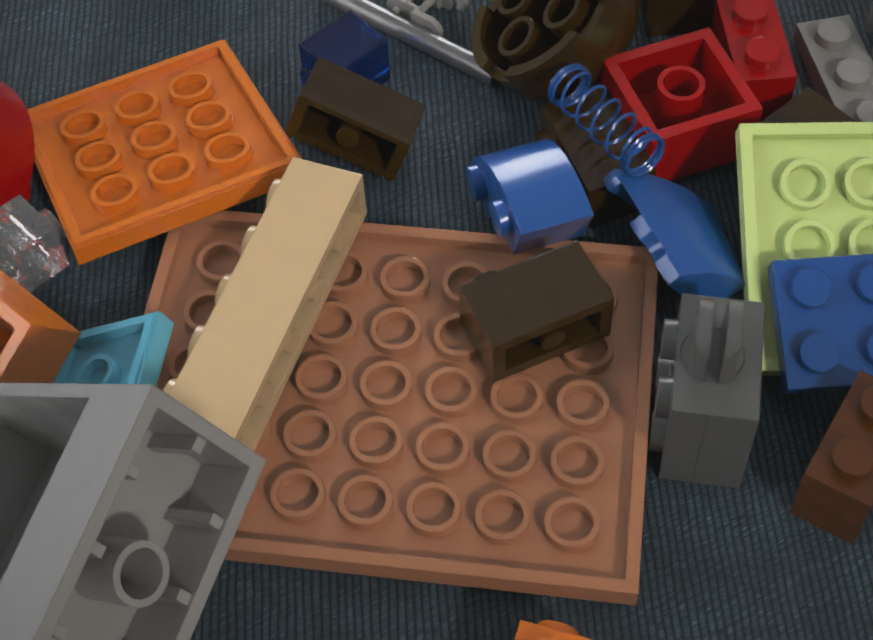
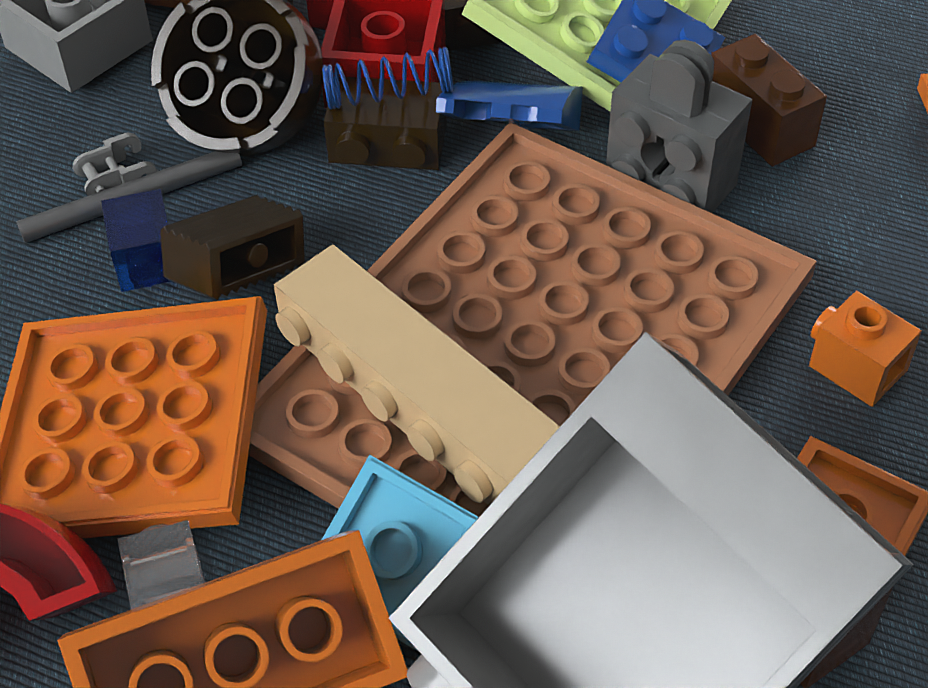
camera: 65 degrees left, 5 degrees down
(530, 195) = (407, 163): blue brick -> none
(535, 310) = (538, 204): dark brown brick -> none

